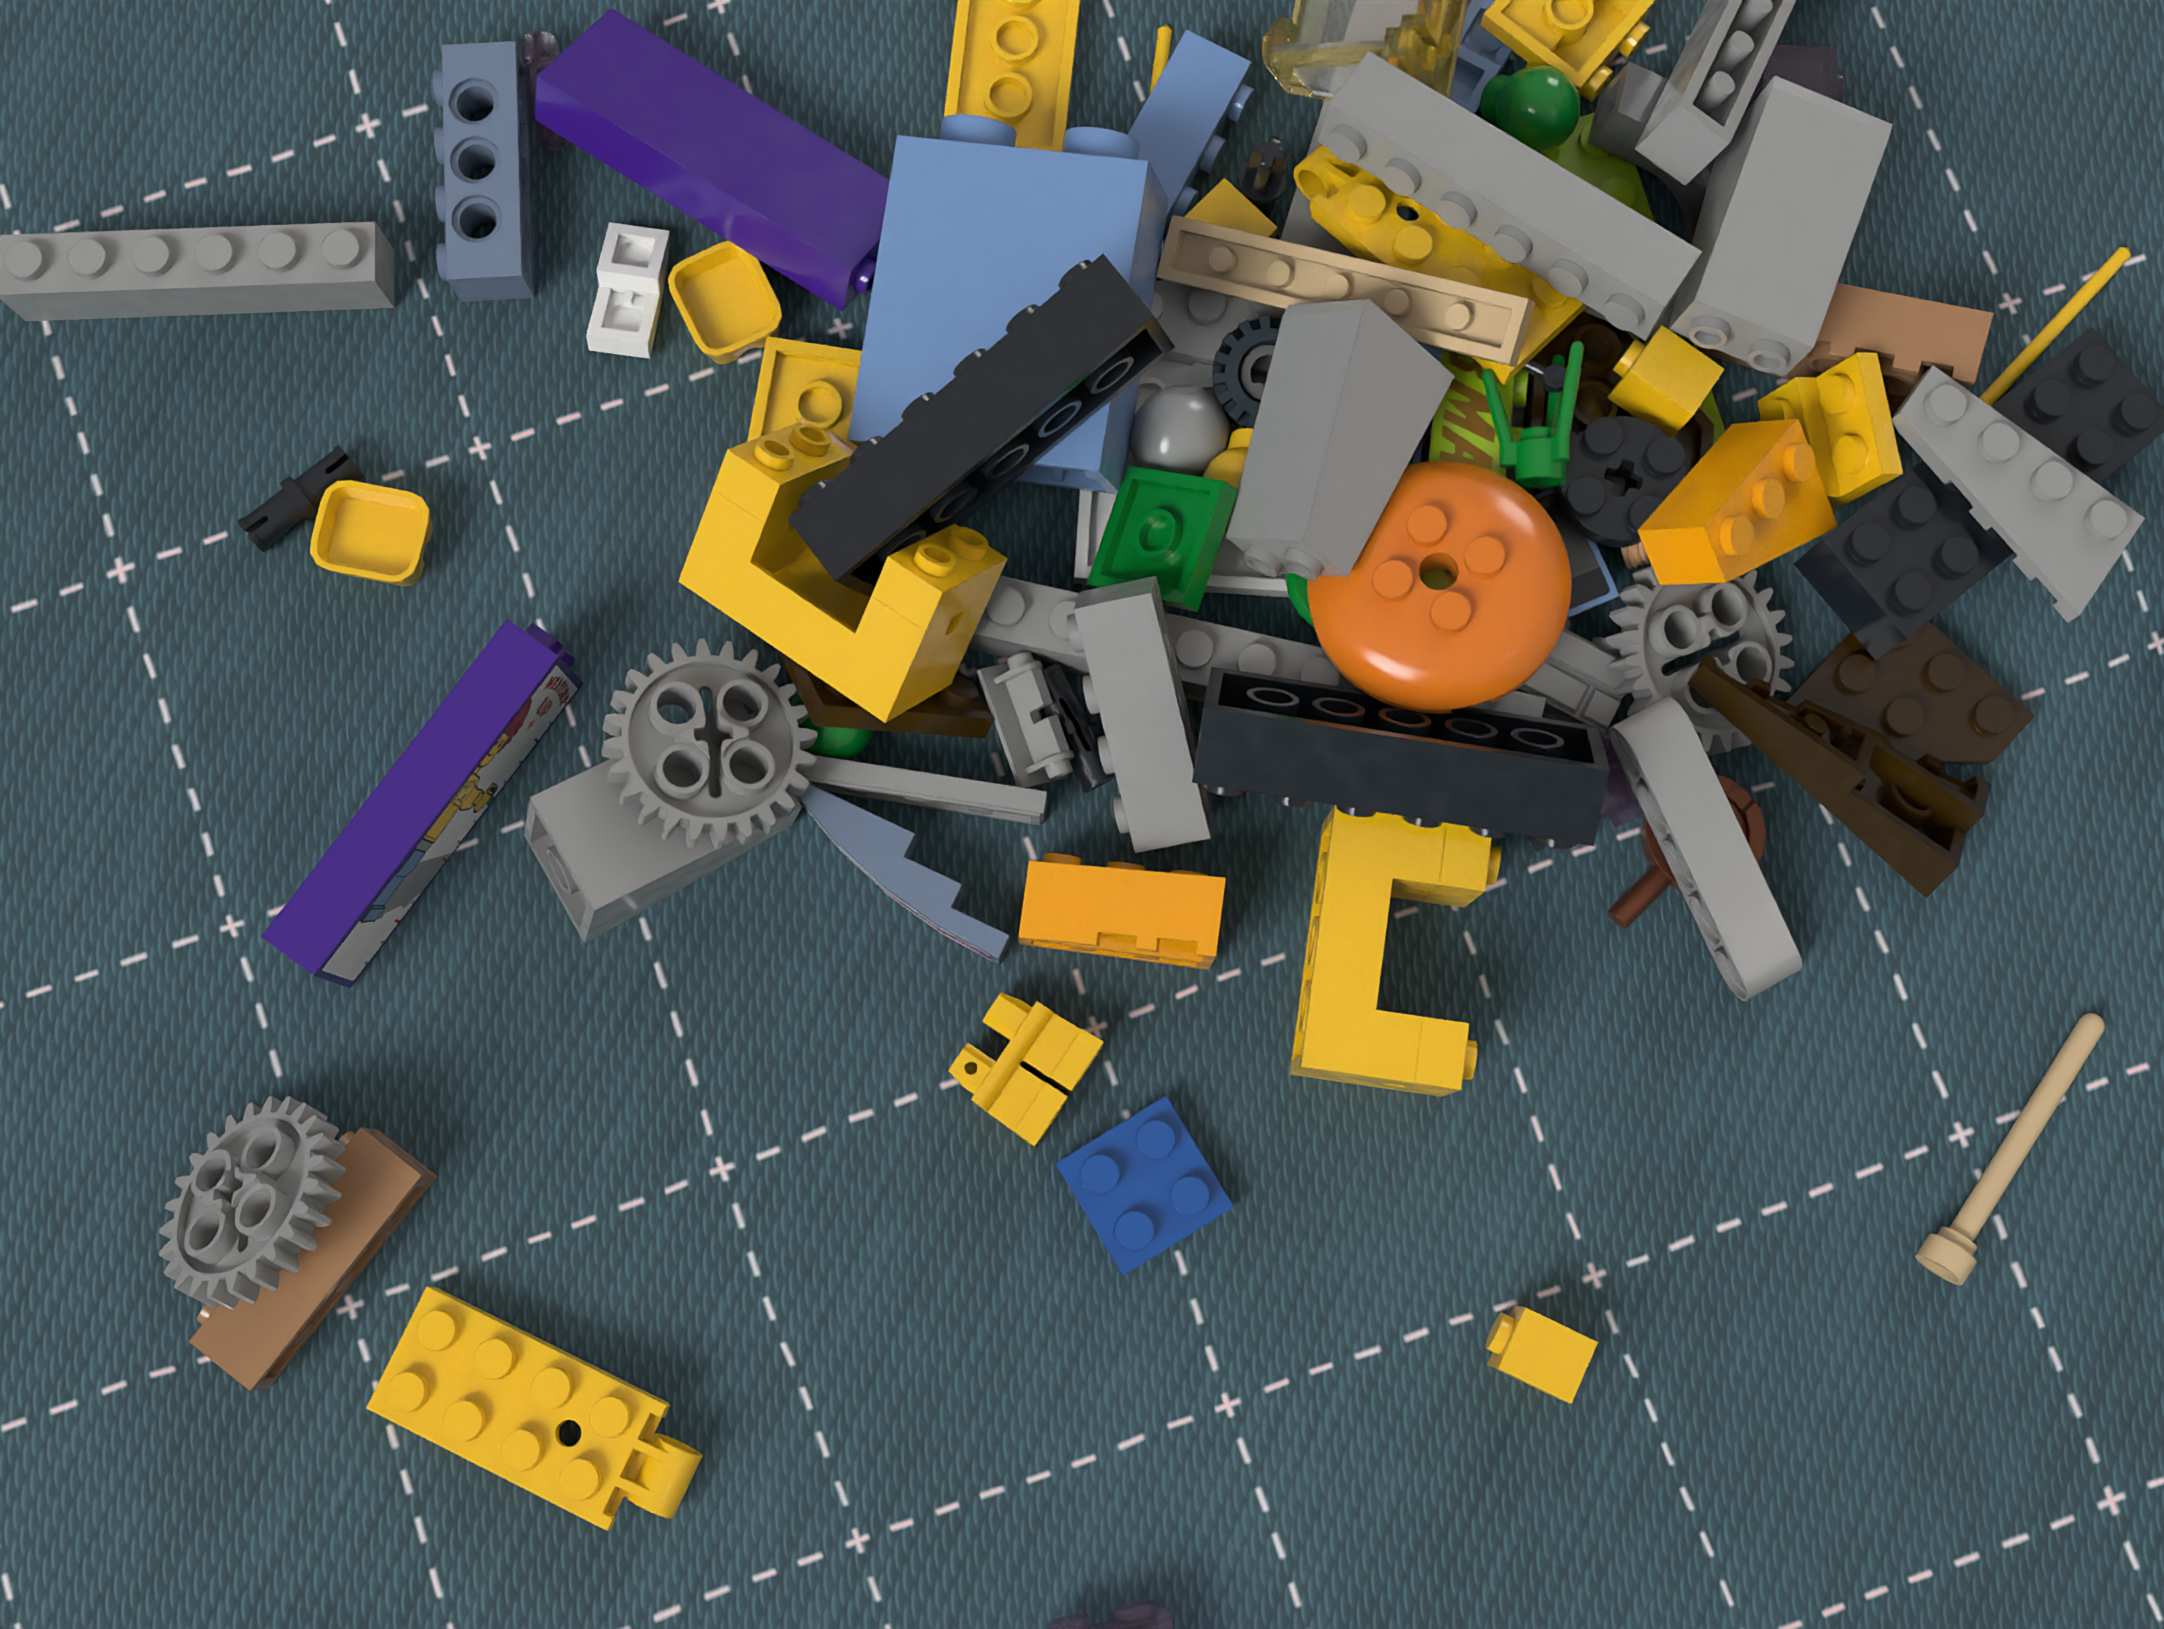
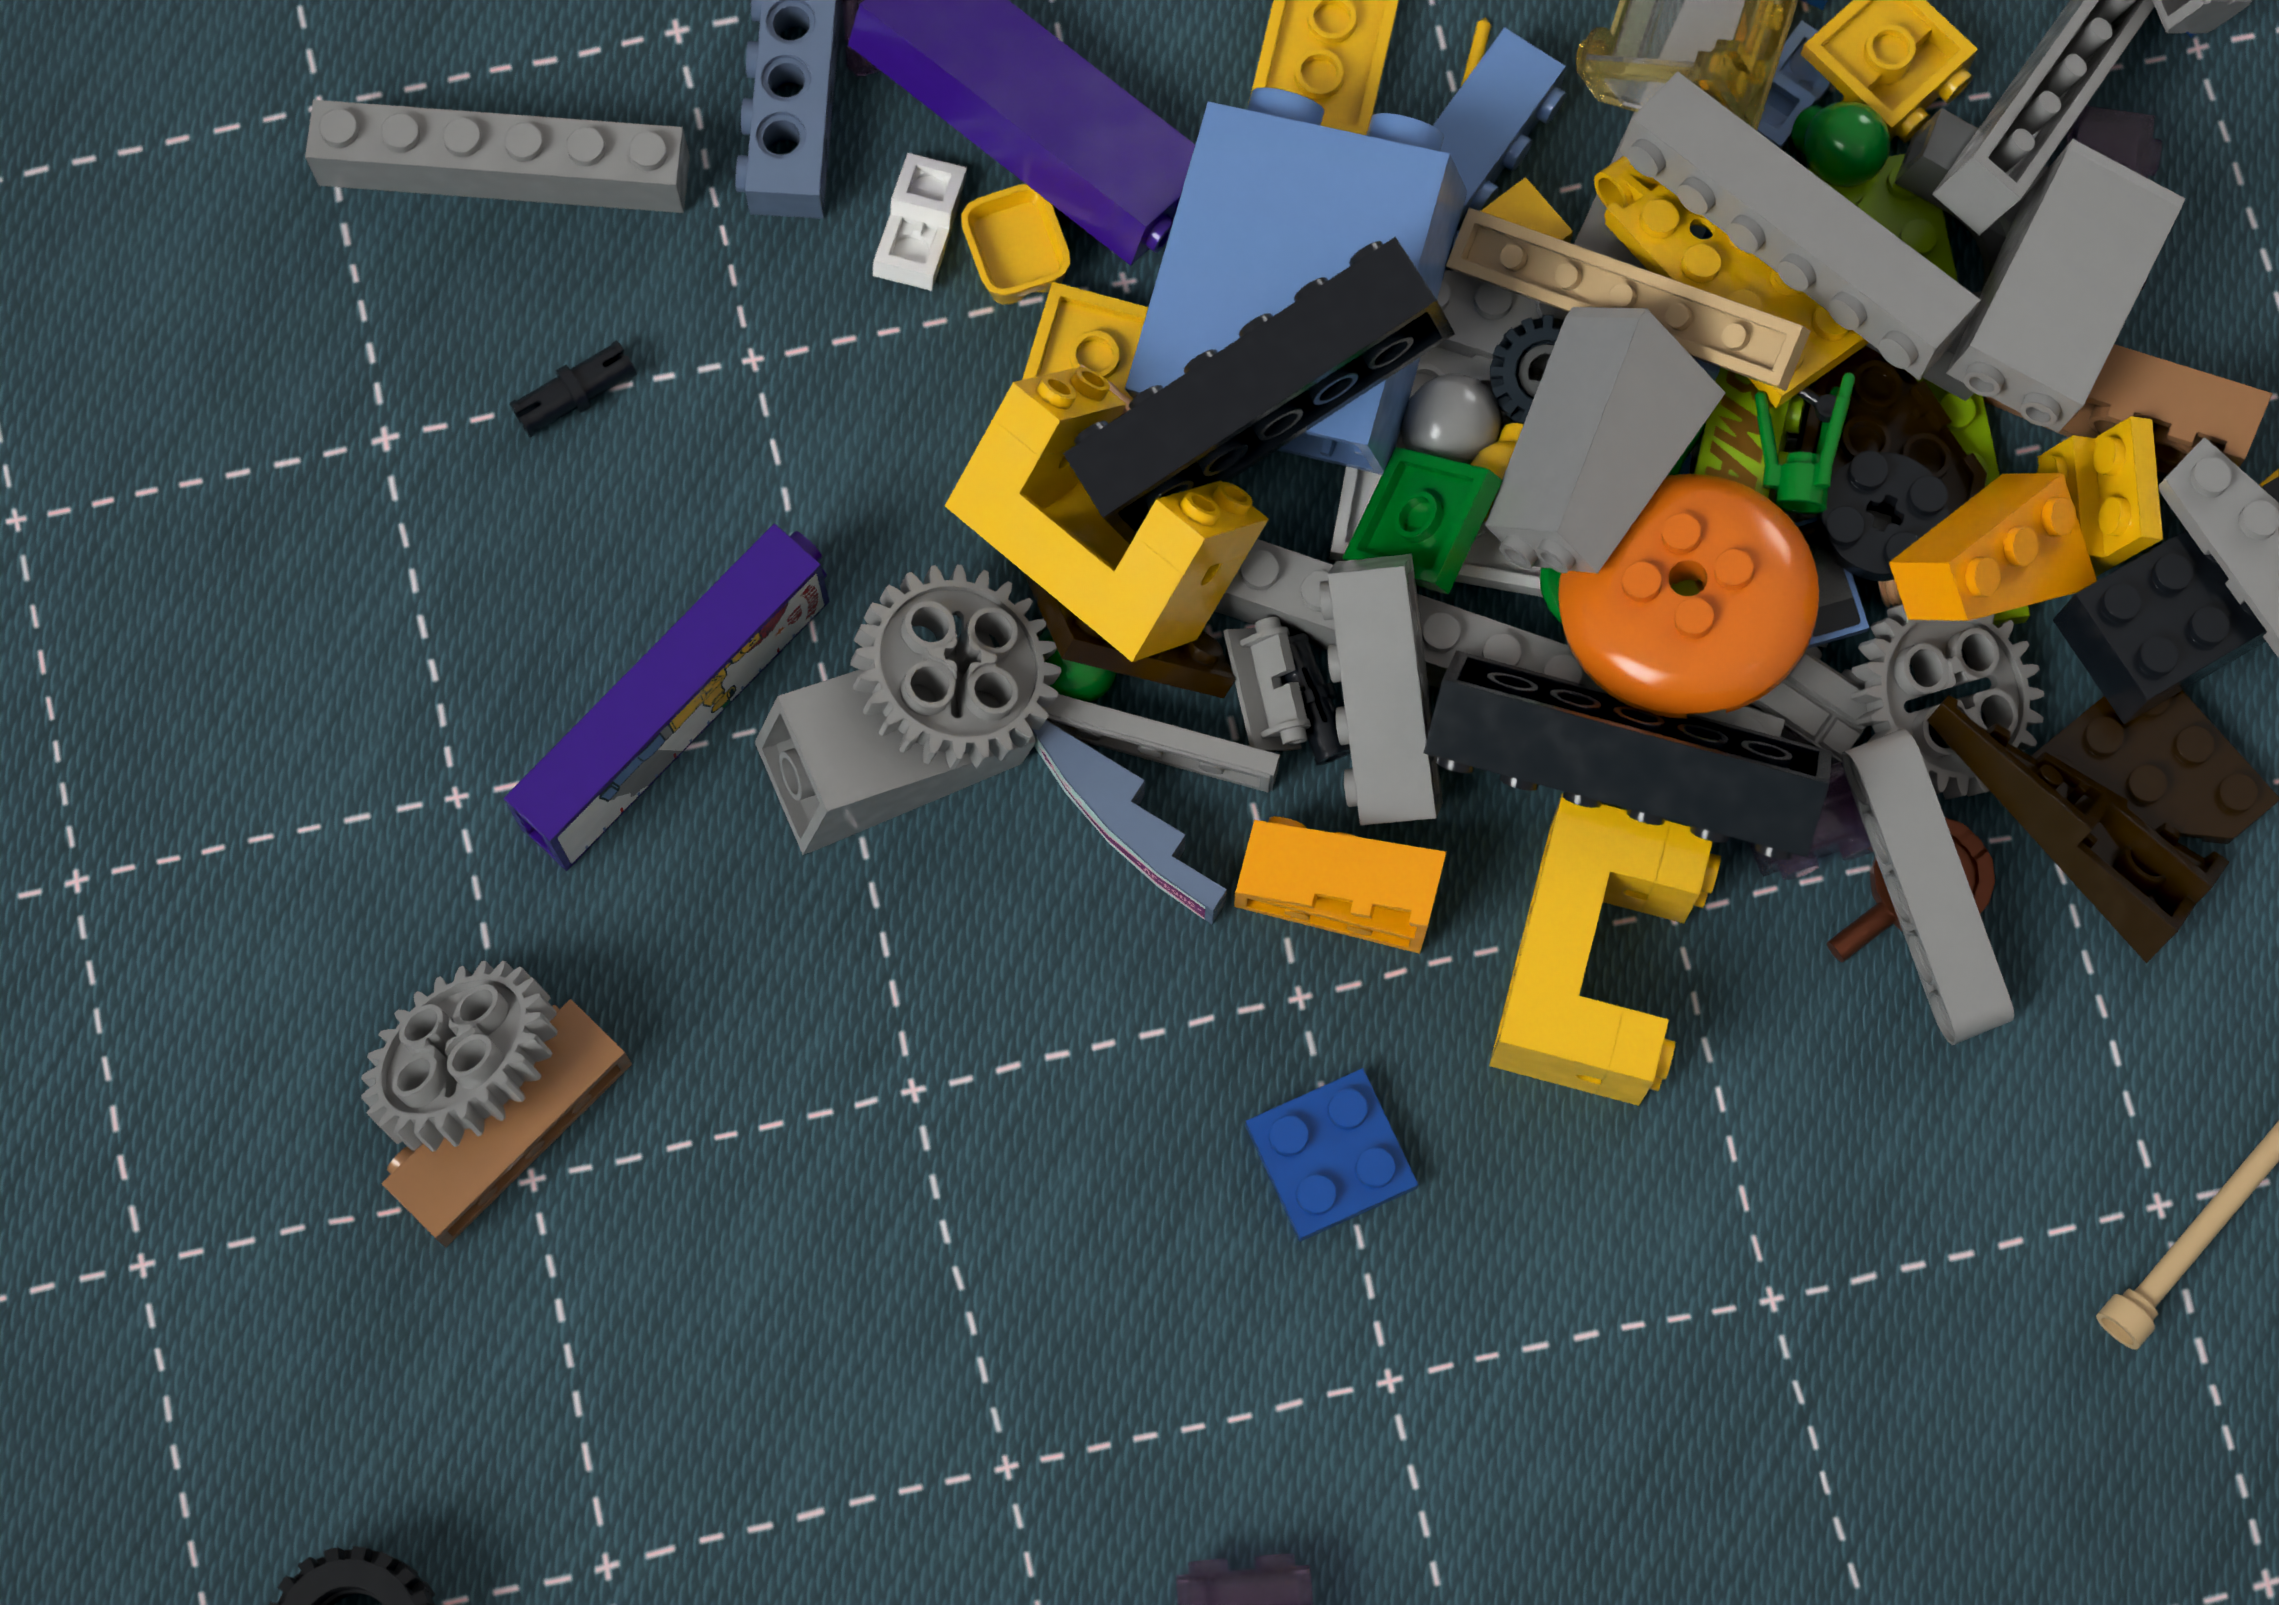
camera: 10 degrees right, 5 degrees down
(371, 532) = (641, 429): yellow piece -> none
(502, 1403) = (679, 1282): yellow hinge -> none
(1041, 1042) = (1234, 1028): yellow hips -> none
(1264, 175) = (1565, 179): black axle -> none
(1540, 1352) = (1705, 1361): yellow brick -> none
(1664, 380) = (1937, 423): yellow brick -> none

